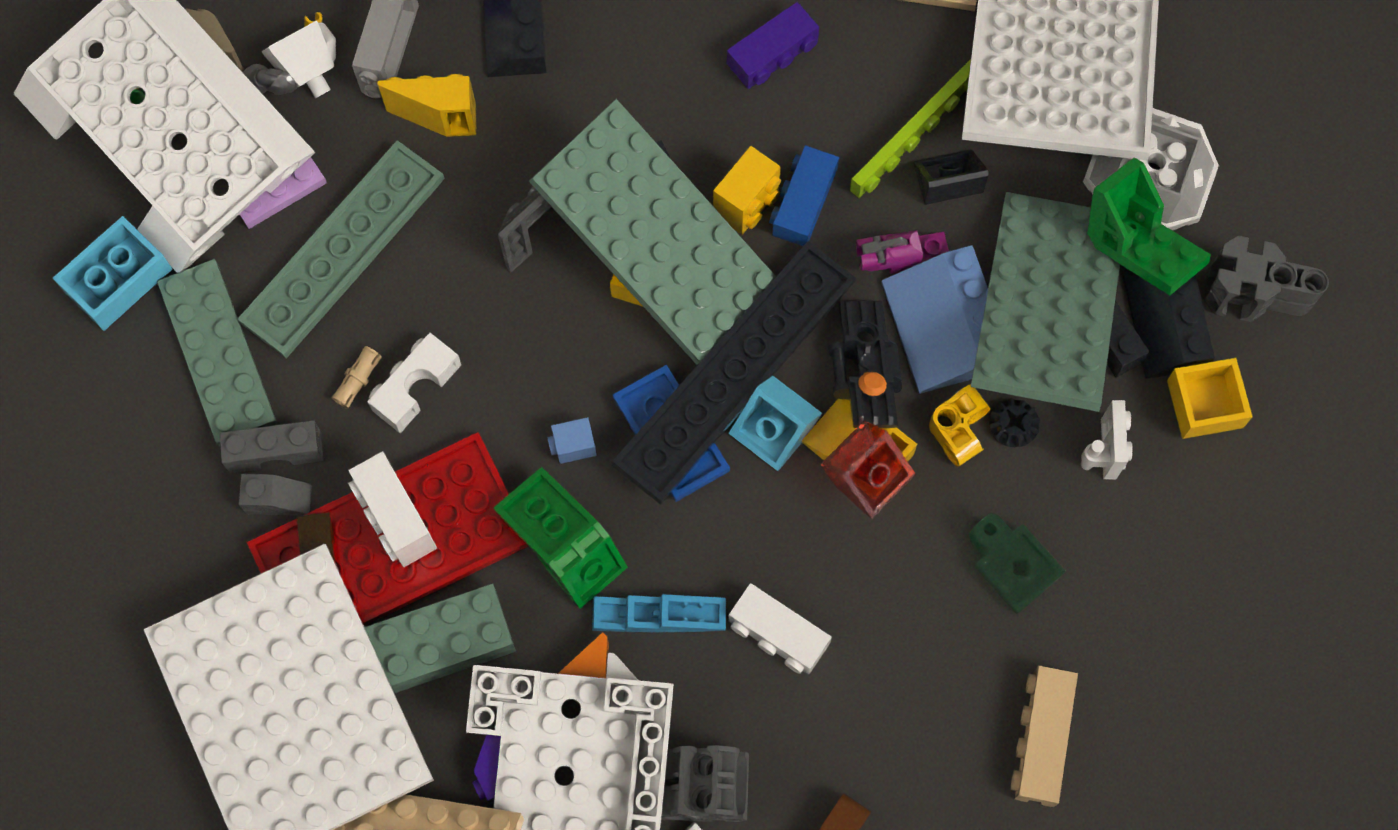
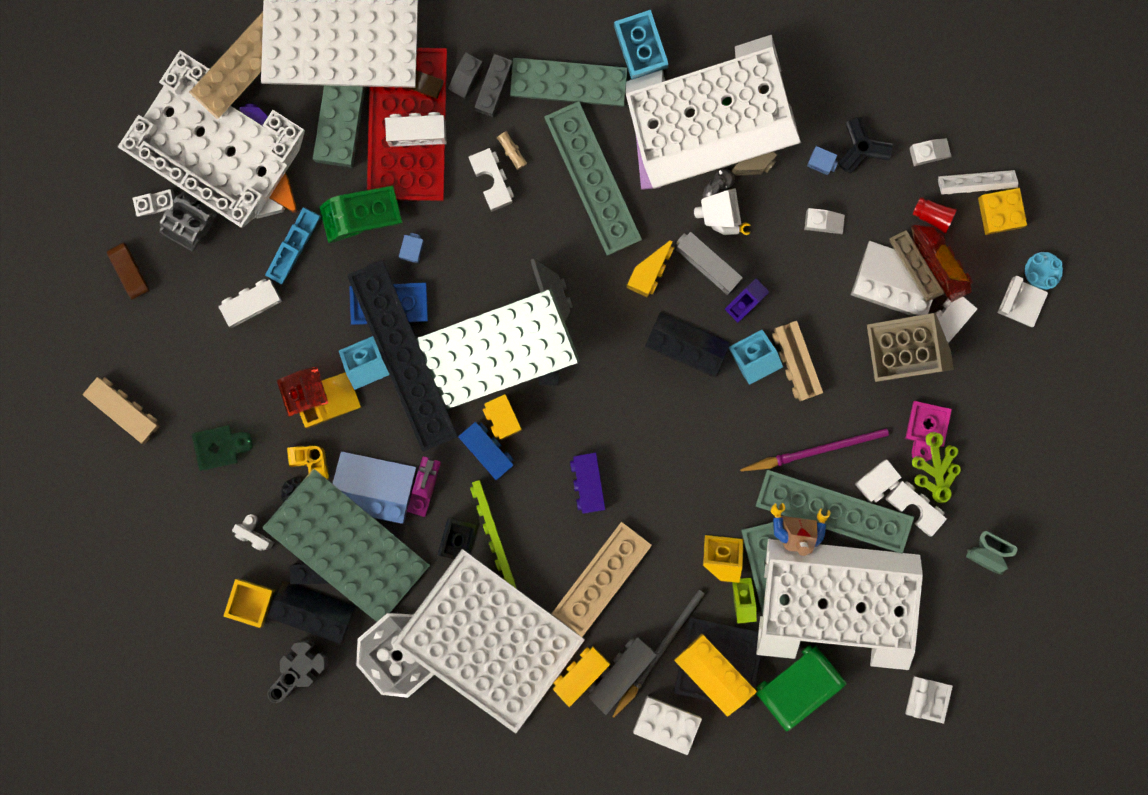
camera: 120 degrees right, 15 degrees up
(878, 364) = (363, 434): black piece -> none
(1129, 230) = (353, 614): green bracket -> none

